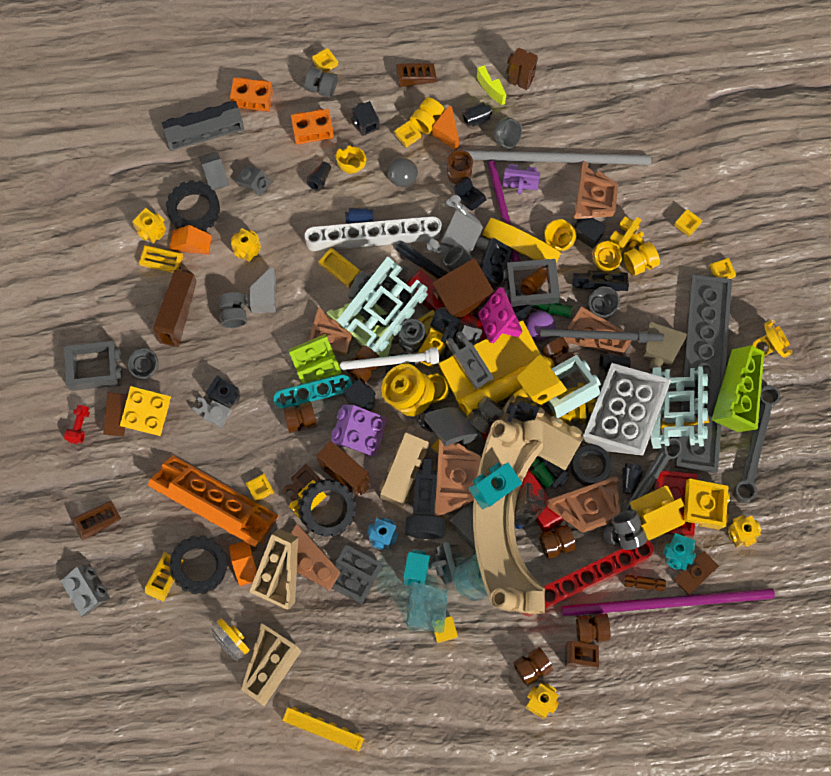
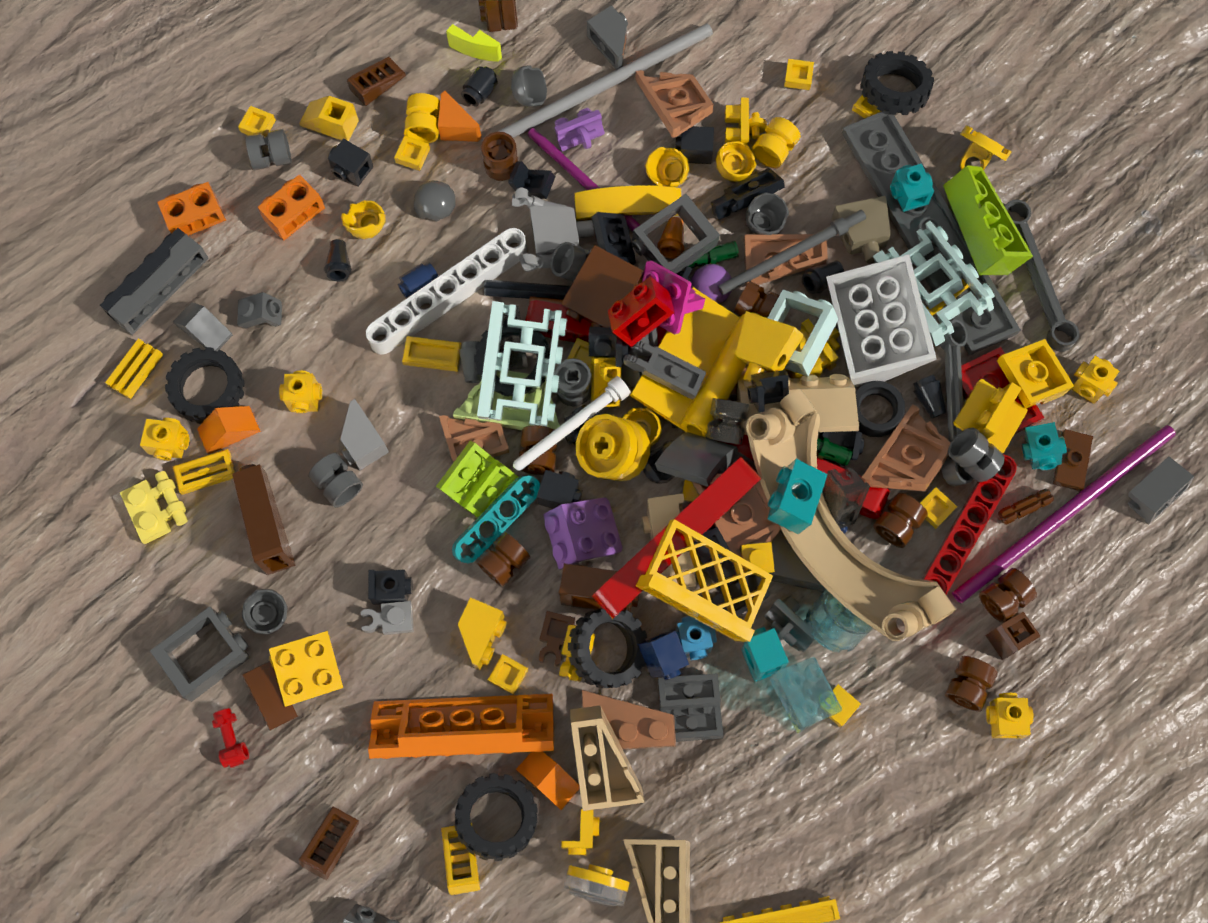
camera: 30 degrees left, 0 degrees up
(113, 261) = (146, 512): none -> light yellow plate
(158, 169) = (129, 367): none -> yellow tile
(247, 606) = (588, 828): none -> yellow bracket
(259, 450) = (479, 627): none -> yellow slope
(356, 532) = (664, 655): none -> dark blue brick
(371, 83) = (331, 117): none -> yellow slope
(388, 511) = (701, 607): none -> yellow fence
(406, 465) = (698, 516): none -> red beam
(448, 509) = (759, 555): none -> yellow plate
(473, 315) = (640, 311): none -> red brick
(582, 128) = (609, 35): none -> dark grey slope
(586, 548) = (938, 507): none -> yellow plate
(707, 338) = (912, 187): none -> teal brick
(738, 625) = (1159, 489): none -> dark grey hinge
(755, 251) = (893, 100): none -> black tyre

